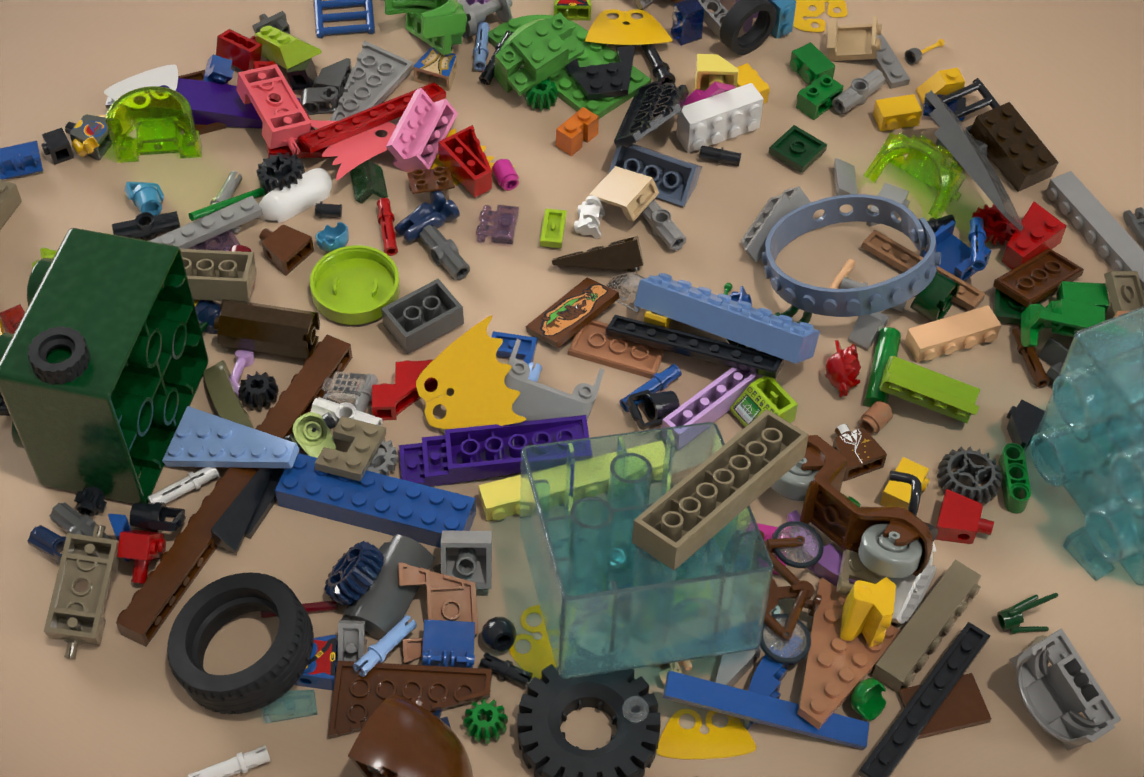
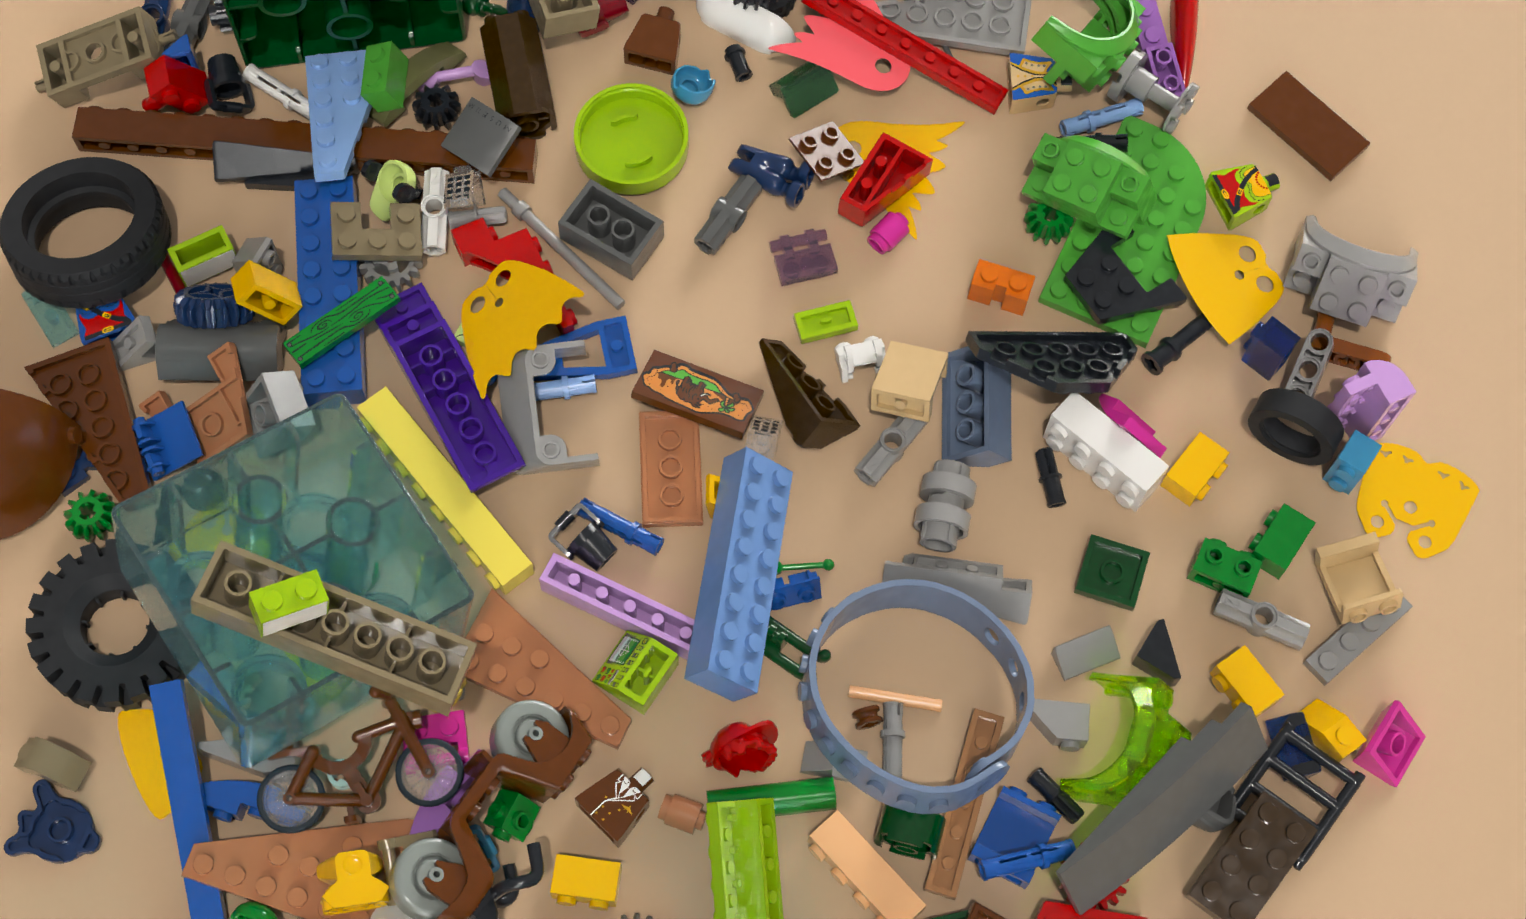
camera: 65 degrees right, 15 degrees up
(221, 403) = (384, 76): none -> bright green brick
(302, 572) = (203, 256): none -> lime brick
(312, 357) = (481, 136): none -> dark grey slope
(326, 538) = (261, 251): none -> light grey slope
(367, 528) = (266, 292): none -> yellow brick
(374, 368) = (522, 211): none -> light grey bar
(377, 652) = (139, 375): light blue pin -> none
(386, 221) = (751, 130): red pin -> none
(417, 489) = (341, 322): none -> green tile
(419, 131) = (906, 107): bright pink brick -> none
(635, 702) = (130, 655): clear plate -> none
(695, 346) = (687, 549): black tile -> none
(706, 486) = (288, 603): none -> lime brick
(711, 203) = (943, 516): none -> light grey piece
(712, 69) = (1173, 416): light yellow slope -> none
(861, 145) = (1158, 657): none -> black slope
(914, 55) = (1381, 676): dark grey hinge -> none
(949, 58) = (1390, 744): none -> dark pink slope

